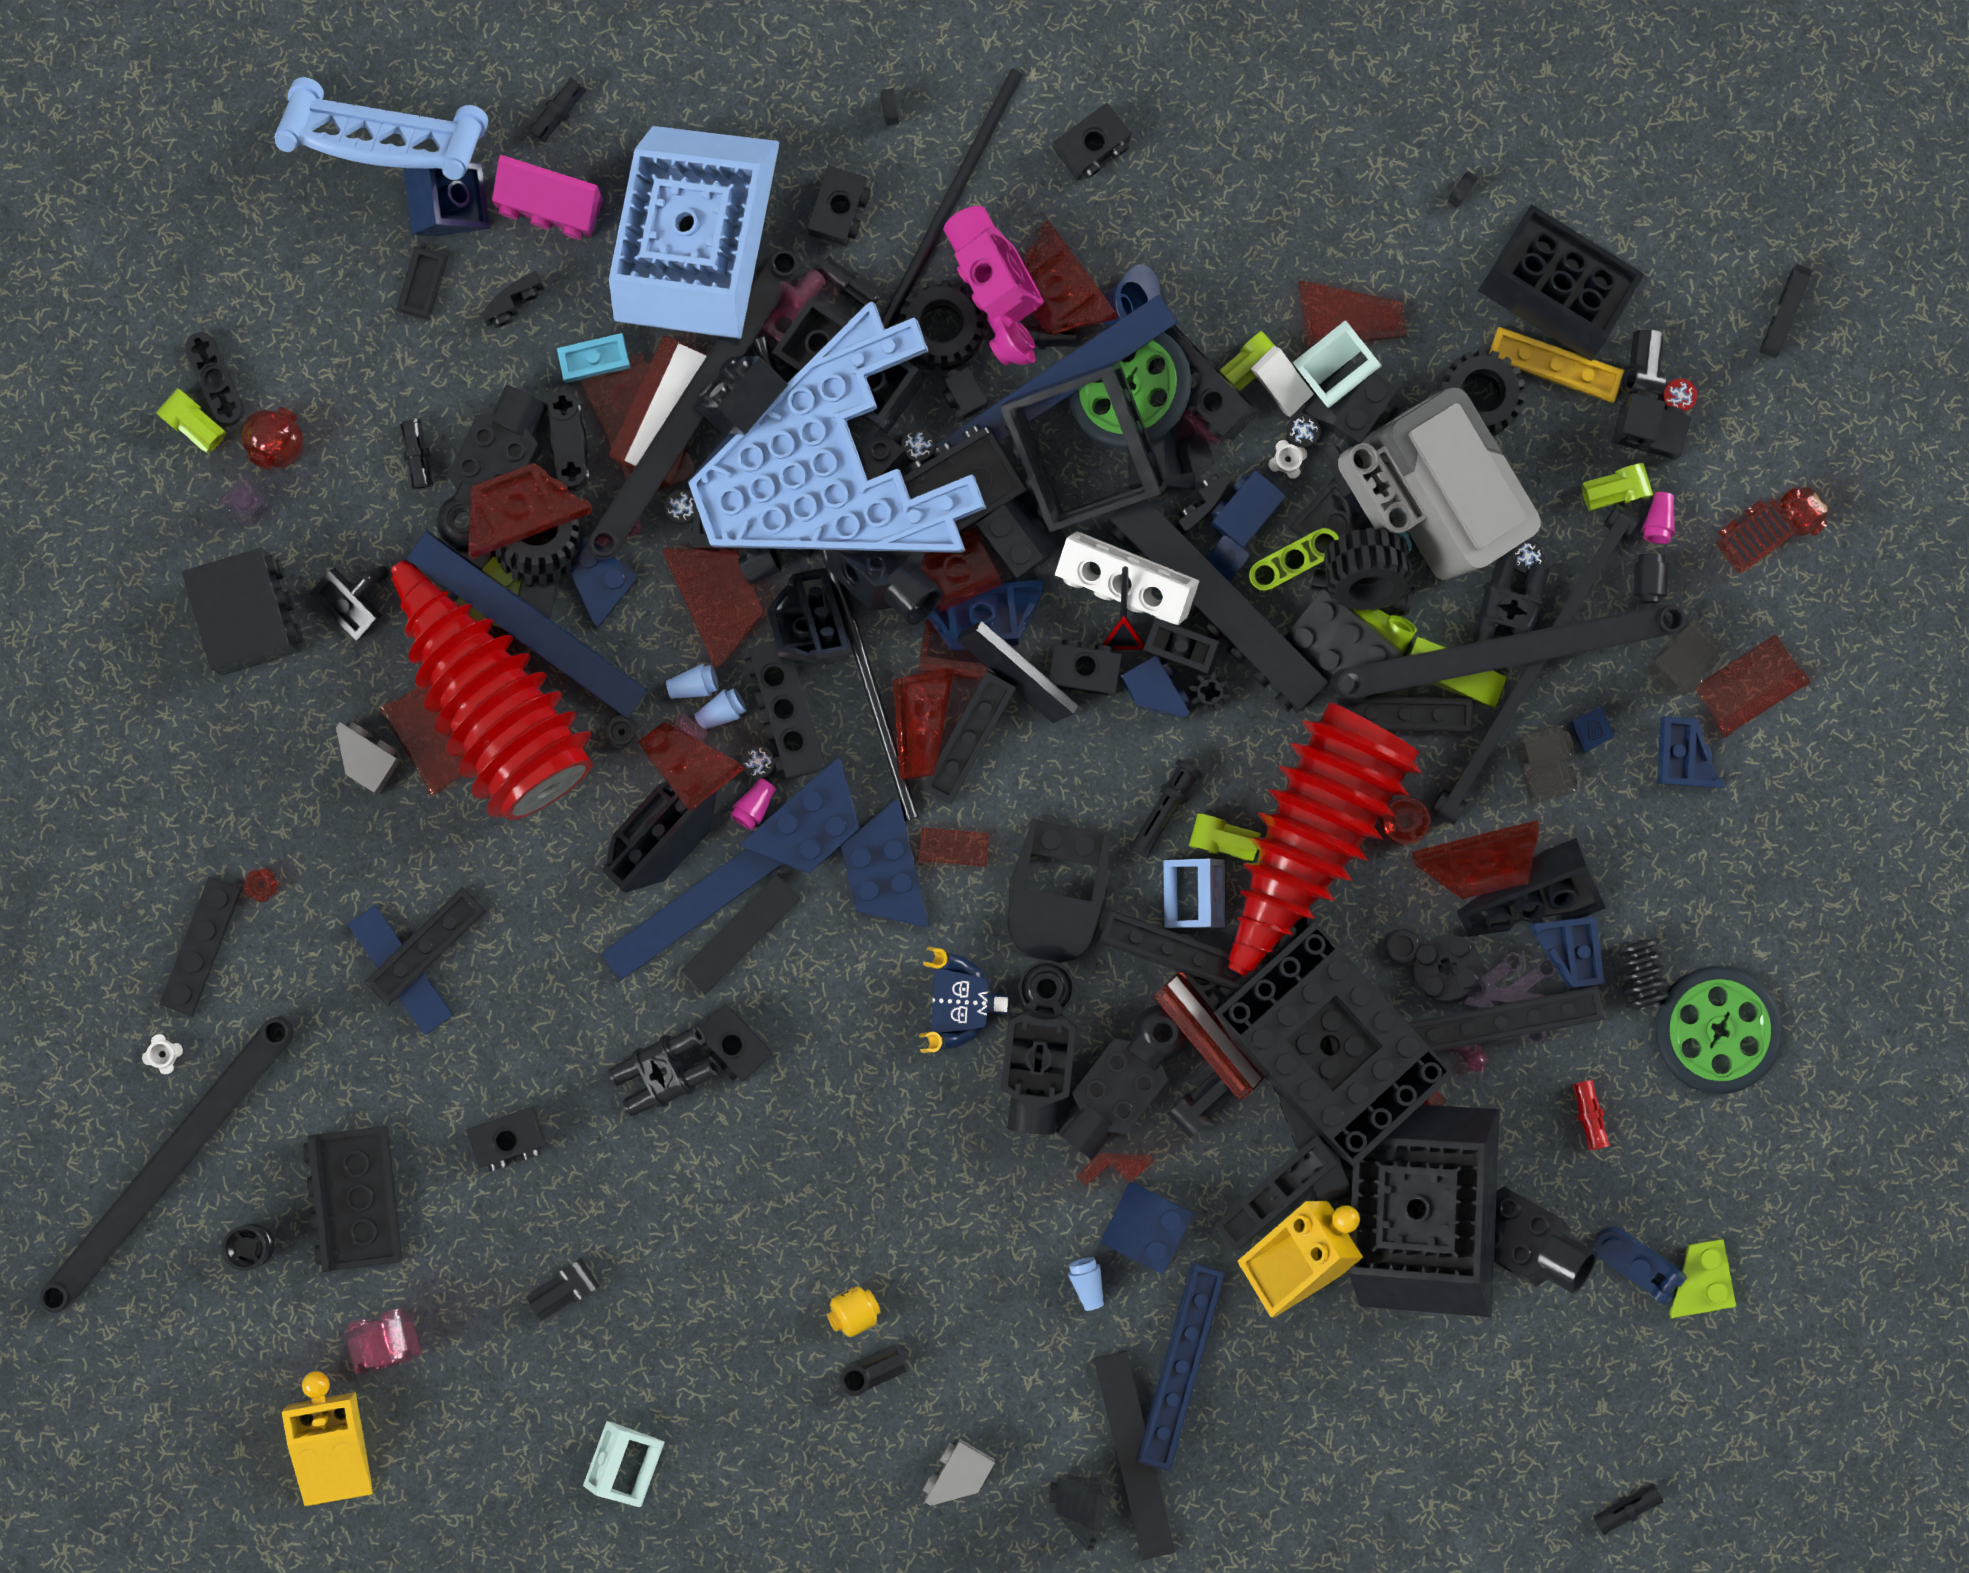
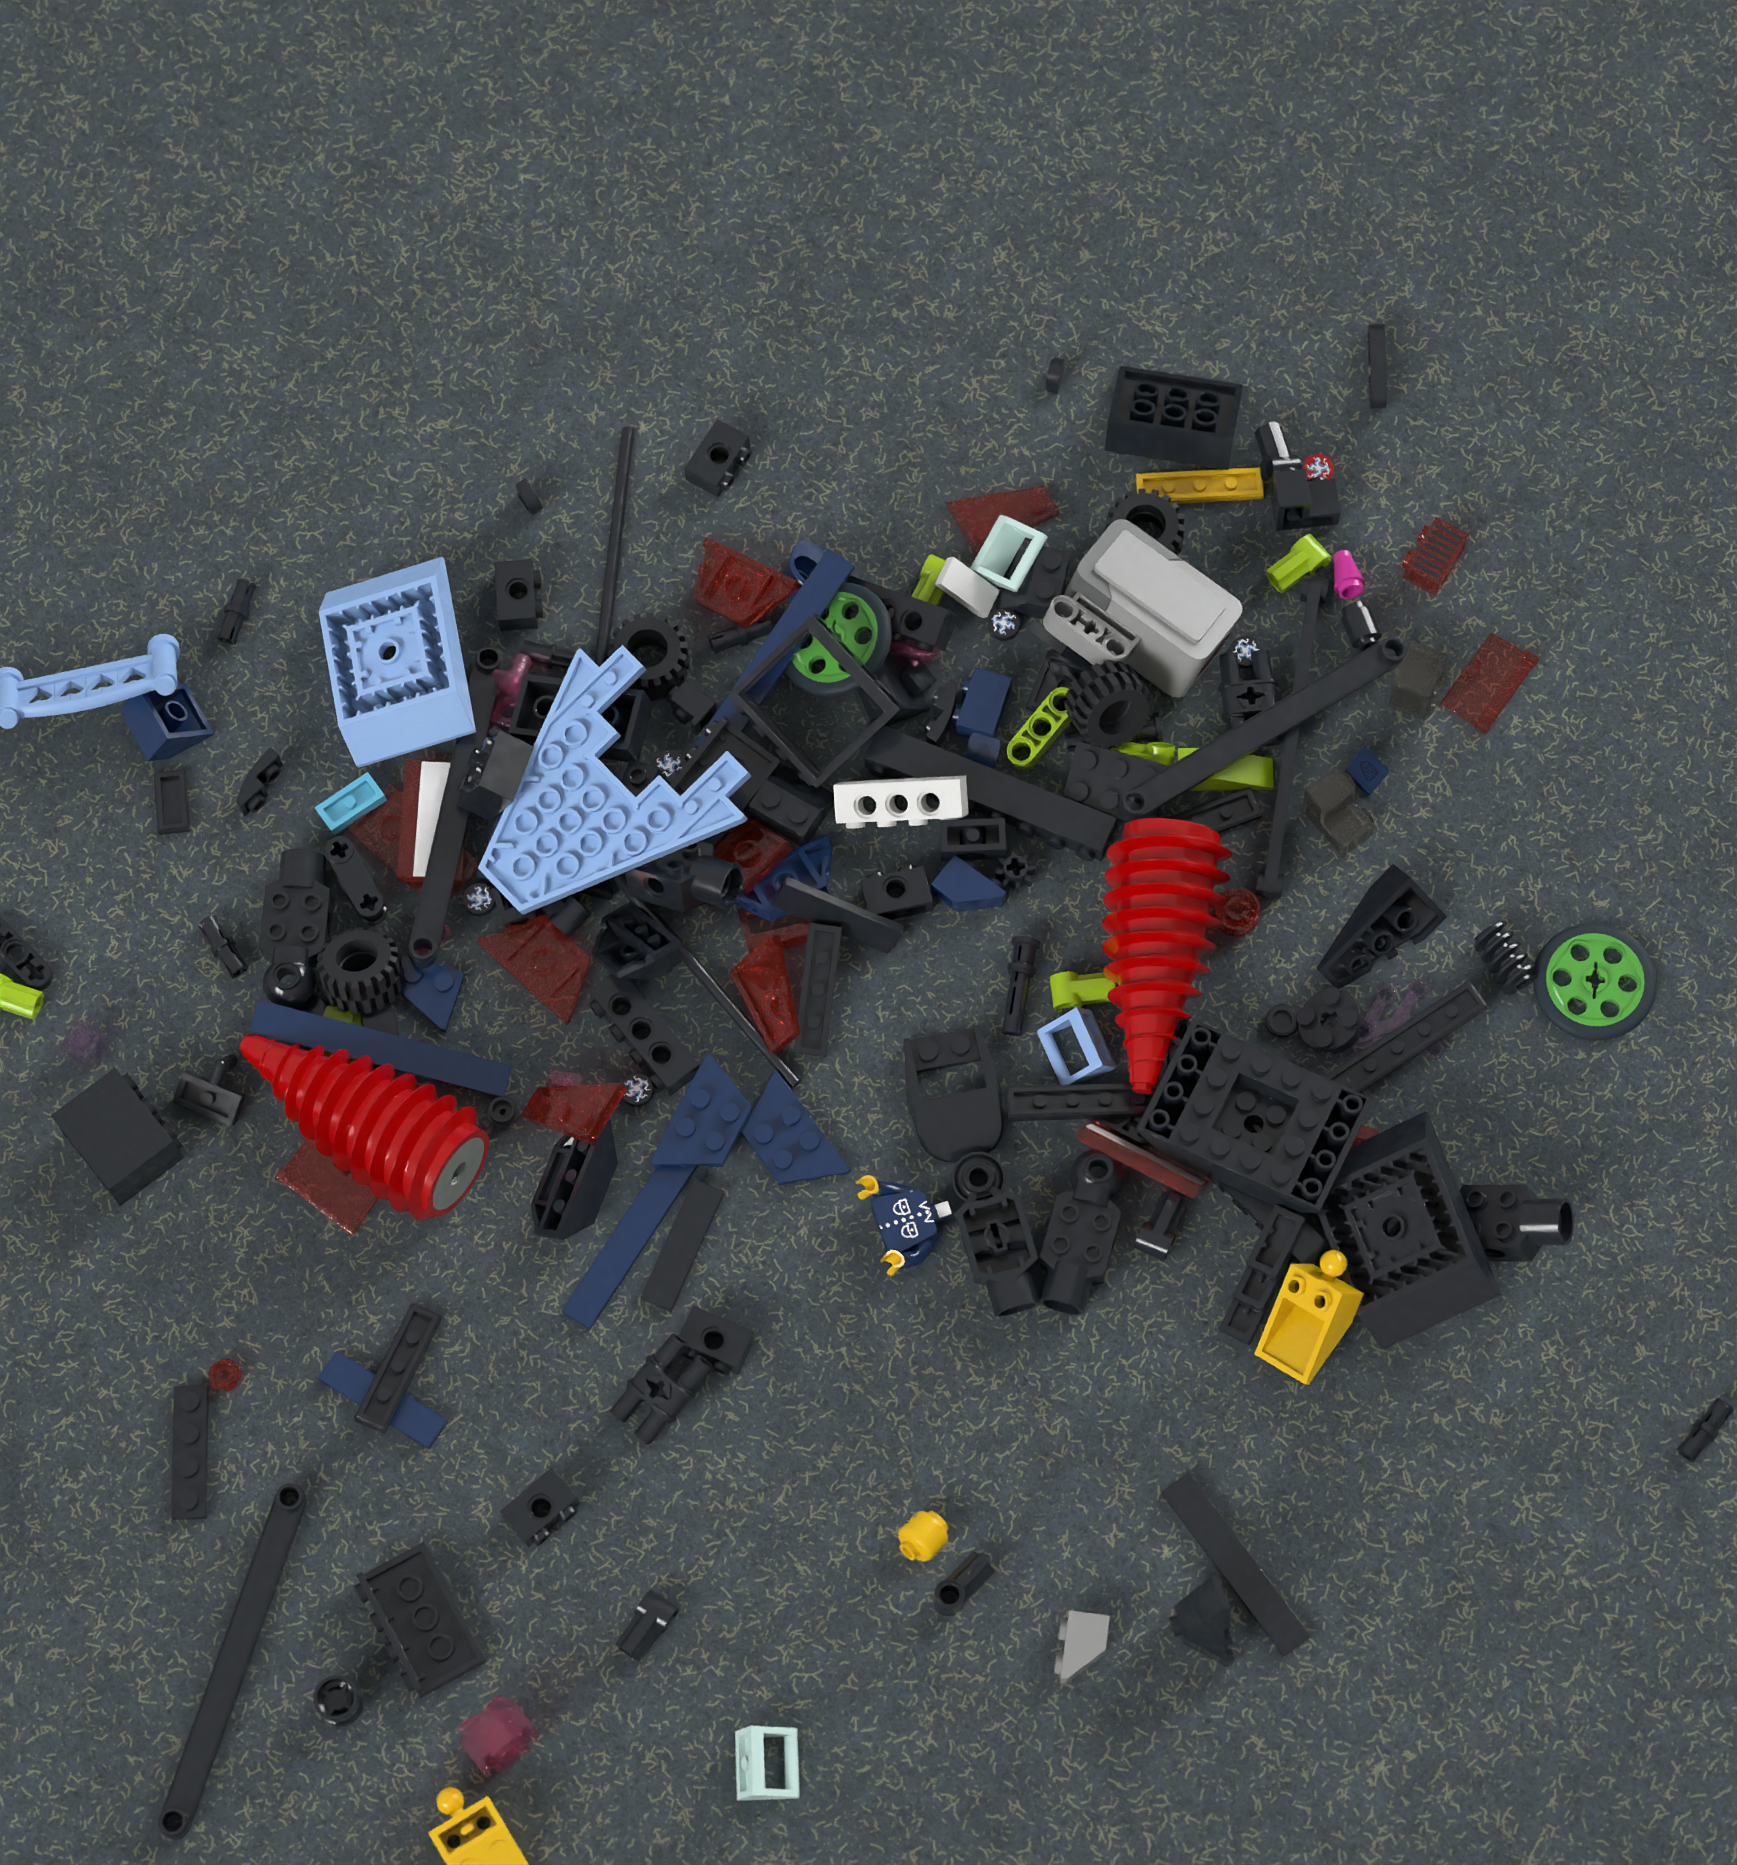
camera: 10 degrees left, 15 degrees down
(153, 1058) = (184, 1555): white plate -> none
(271, 438) = (86, 979): clear red plant -> none
(364, 760) = (280, 1225): light grey slope -> none
(519, 507) = (335, 943): clear red wing -> none
(546, 198) = (255, 683): dark pink slope -> none
(693, 683) = (551, 1043): light blue cone -> none
(721, 709) = (586, 1055): light blue cone -> none
(752, 805) = (647, 1128): dark pink cone -> none
(954, 847) = (843, 1093): clear red tile -> none
(998, 281) = (682, 597): dark pink brick -> none
(1087, 1282) = (1126, 1425): light blue cone -> none
(1123, 634) = (917, 851): black piece -> none
(1126, 1164) = (1113, 1305): clear red slope -> none
(1146, 1227) = (1159, 1353): dark blue slope -> none
(1180, 1366) = (1243, 1466): dark blue tile -> none
(1290, 468) = (996, 644): white plate -> none
(1474, 1056) = (1386, 1089): clear pink arm -> none
(1482, 861) = (1319, 917): clear red wing -> none
(1572, 949) = (1432, 961): dark blue wing -> none
(1590, 1115) = (1513, 1098): red pin -> none
(1638, 1263) = (1615, 1209): dark blue plate -> none
(1684, 755) = (1457, 761): dark blue wing -> none
(1707, 1281) = (1680, 1202): lime wing -> none
(1805, 510) = (1469, 517): clear red head -> none

